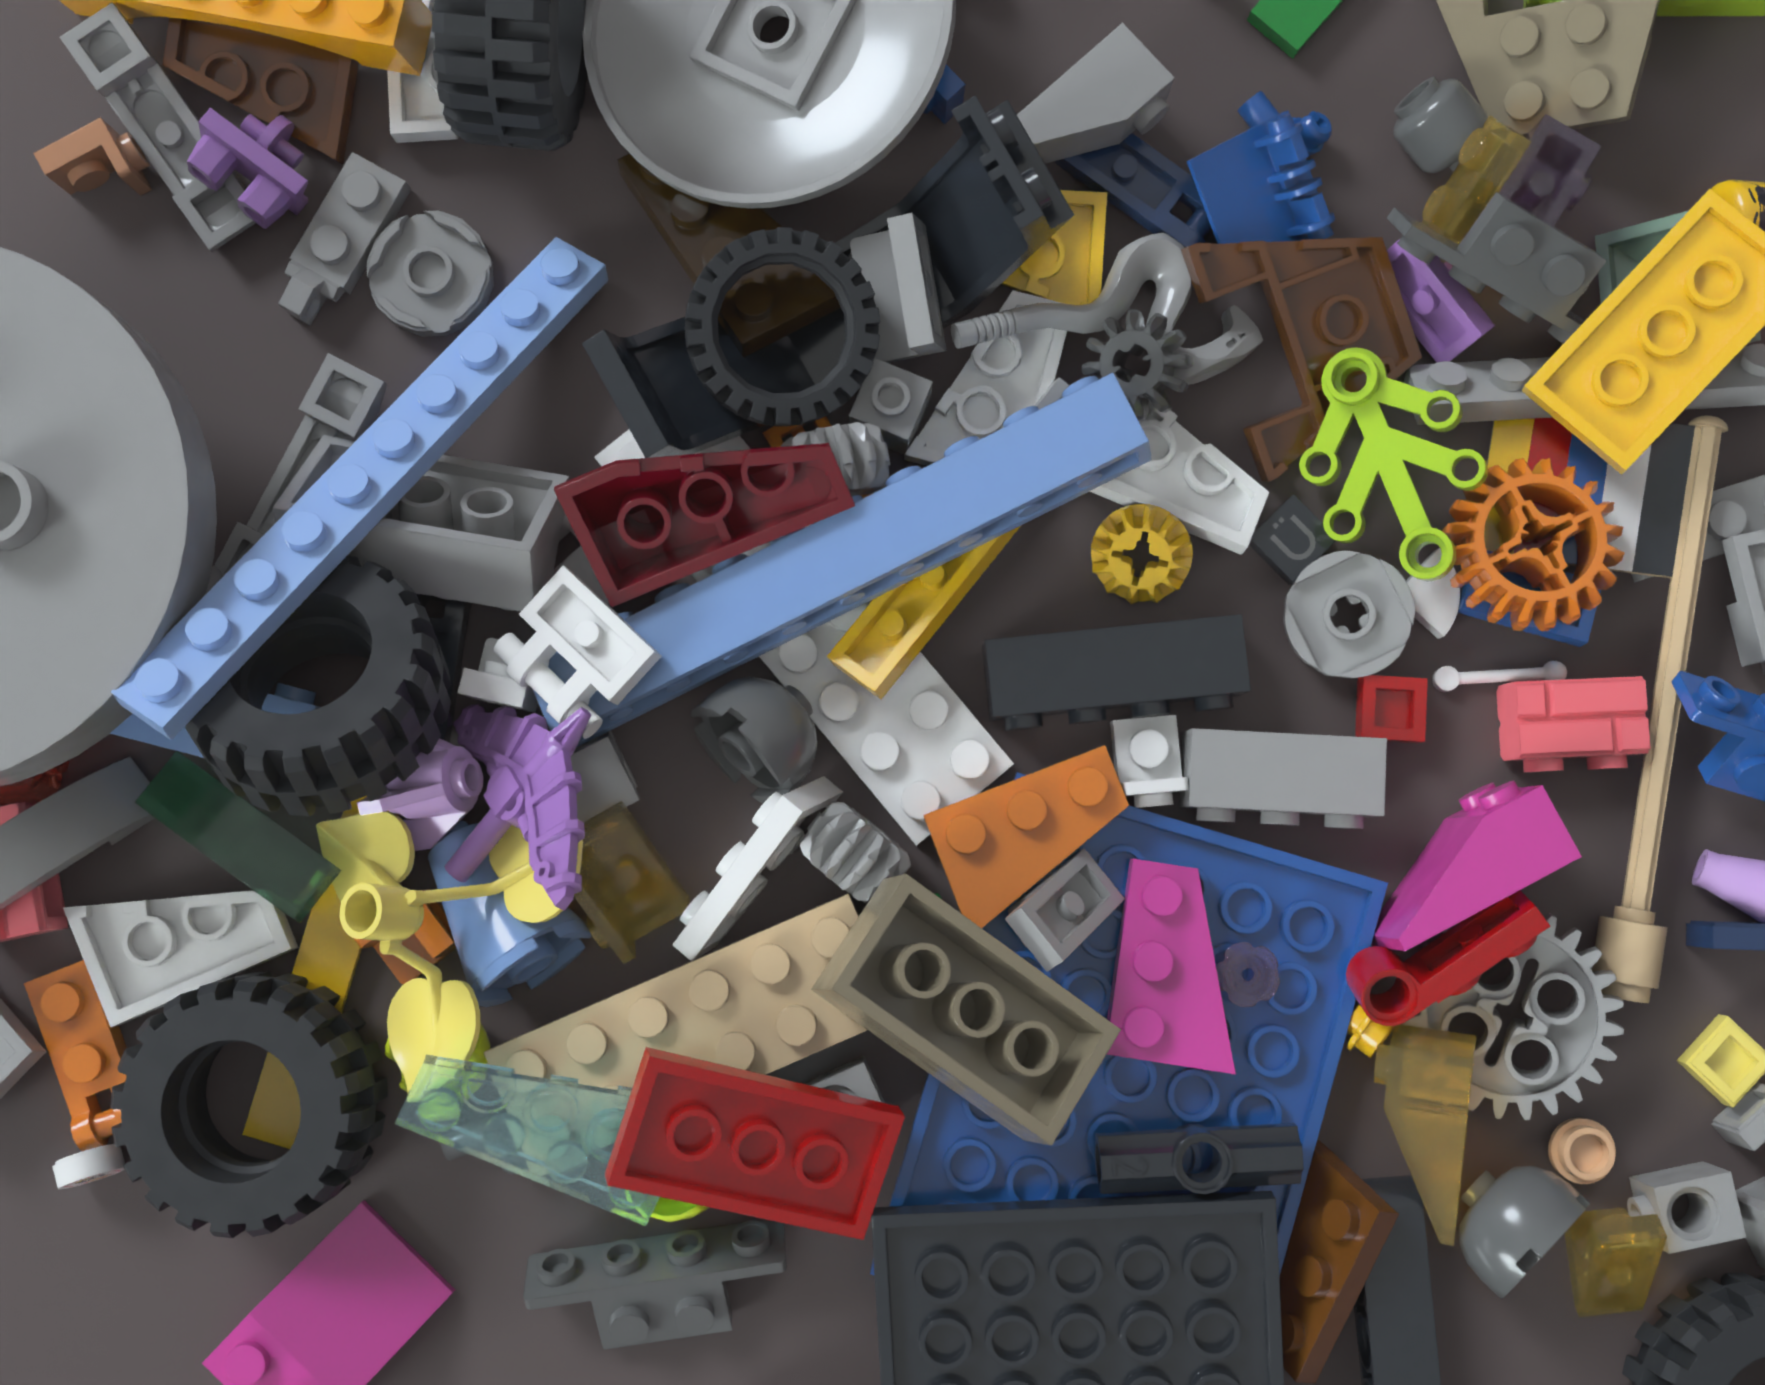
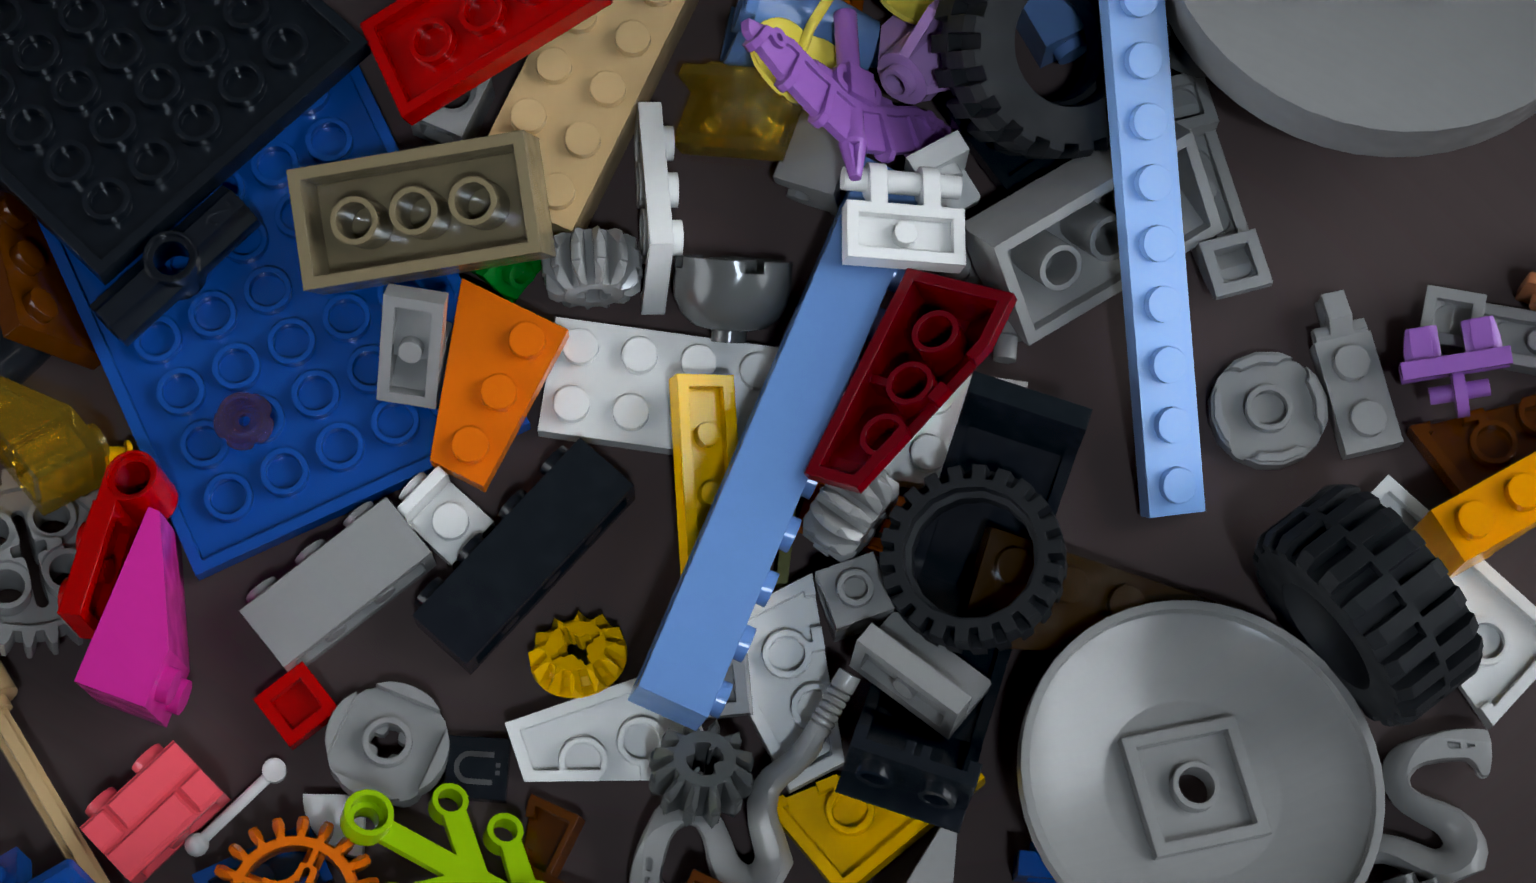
camera: 135 degrees right, 10 degrees down
(1167, 973) = (303, 372): dark pink wing -> none

